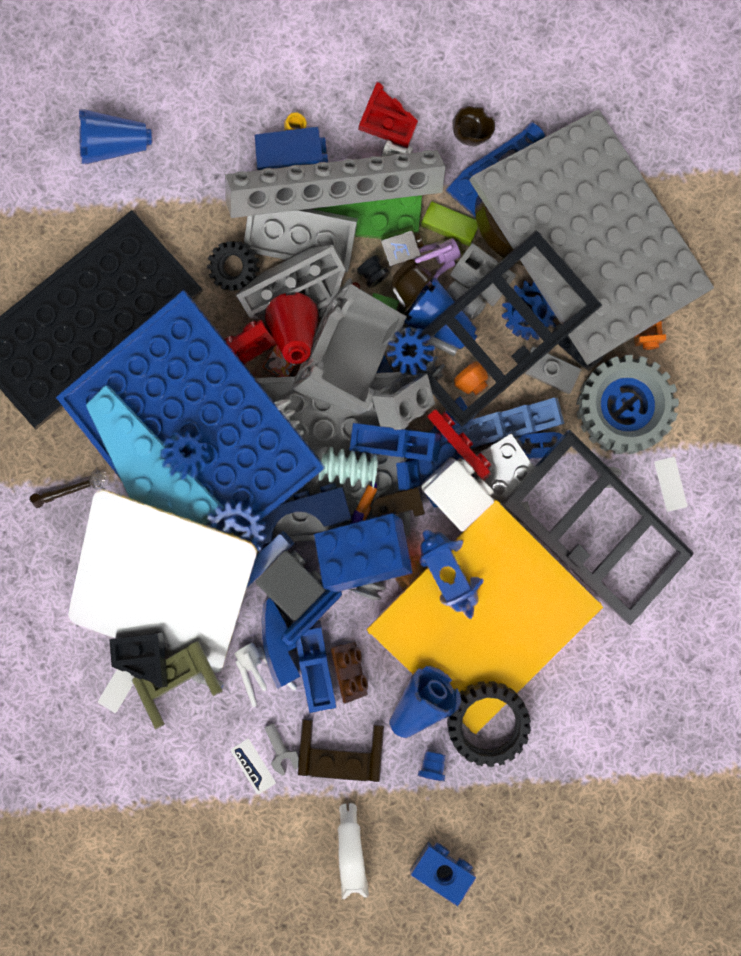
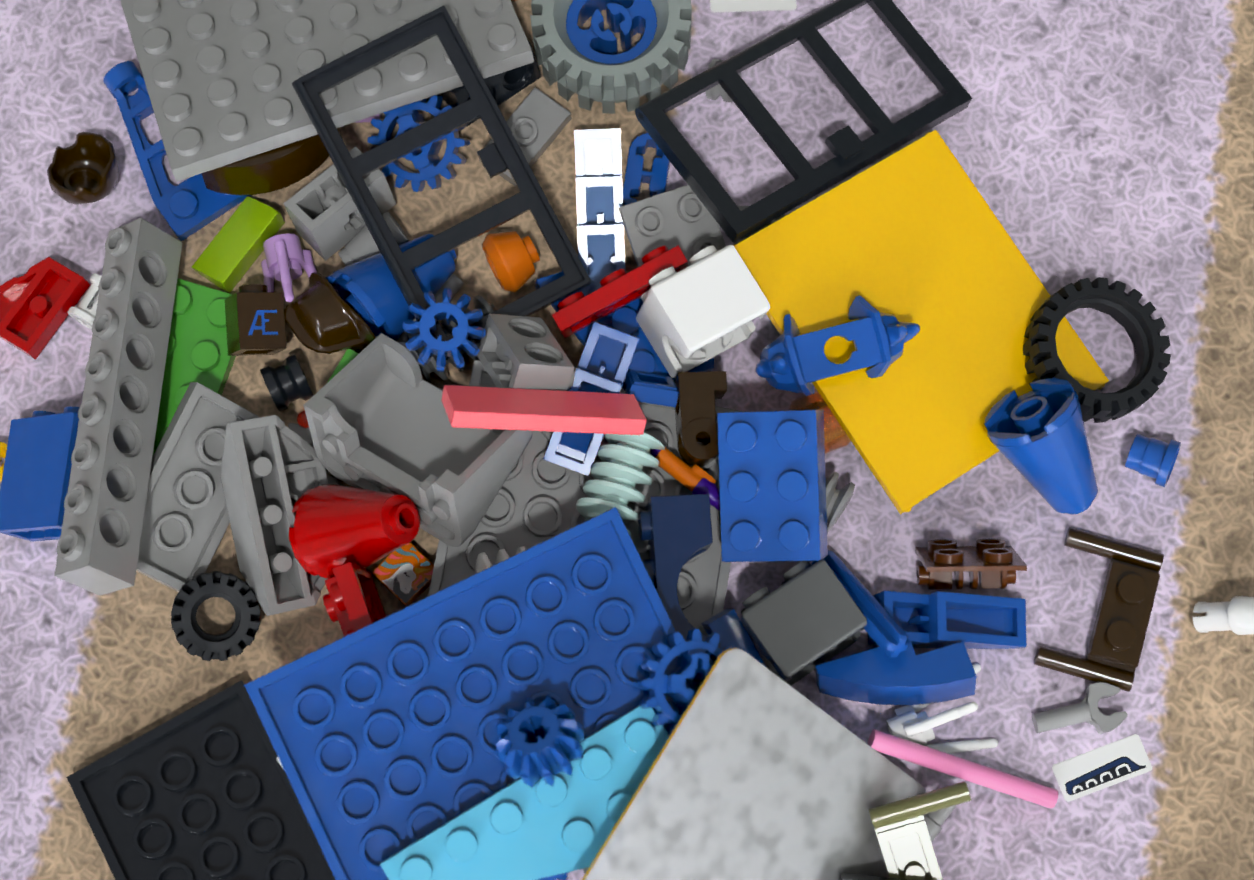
camera: 75 degrees left, 10 degrees down
(233, 689) = (963, 769): none -> bright pink bar
(371, 416) = (543, 410): none -> coral tile

